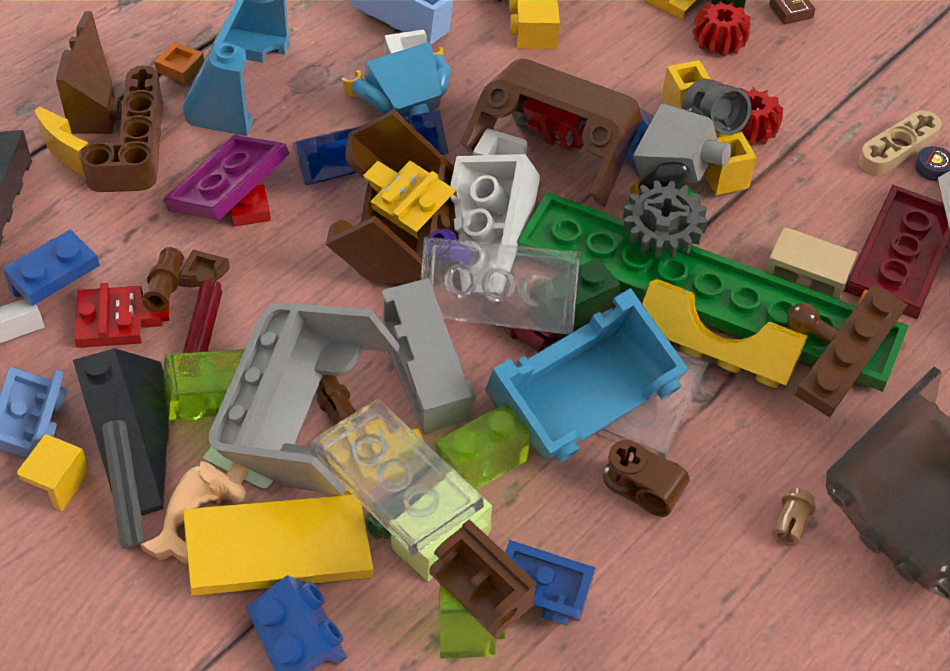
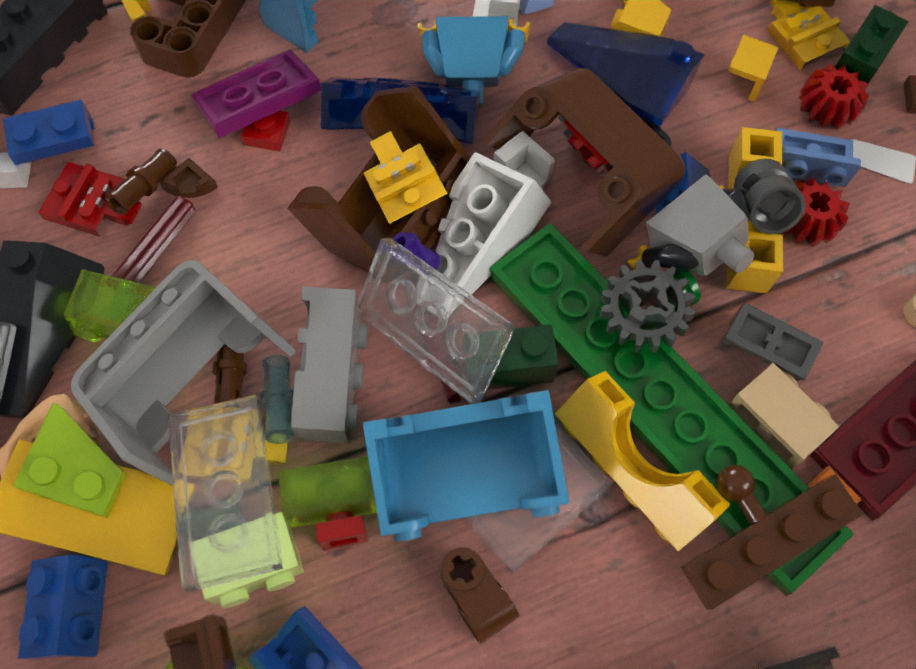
camera: 25 degrees right, 15 degrees up
(247, 510) = (70, 466): none -> lime wing
(394, 397) = (277, 399): none -> clear light blue pin
(509, 477) = (341, 530): none -> red plate
(562, 46) = (642, 68): none -> clear blue wedge
(644, 20) = (753, 62): none -> yellow panel
(740, 72) = (818, 157): none -> medium blue bracket
(772, 213) = (772, 341): none -> dark grey hinge
(783, 64) = (885, 161): none -> white sticker

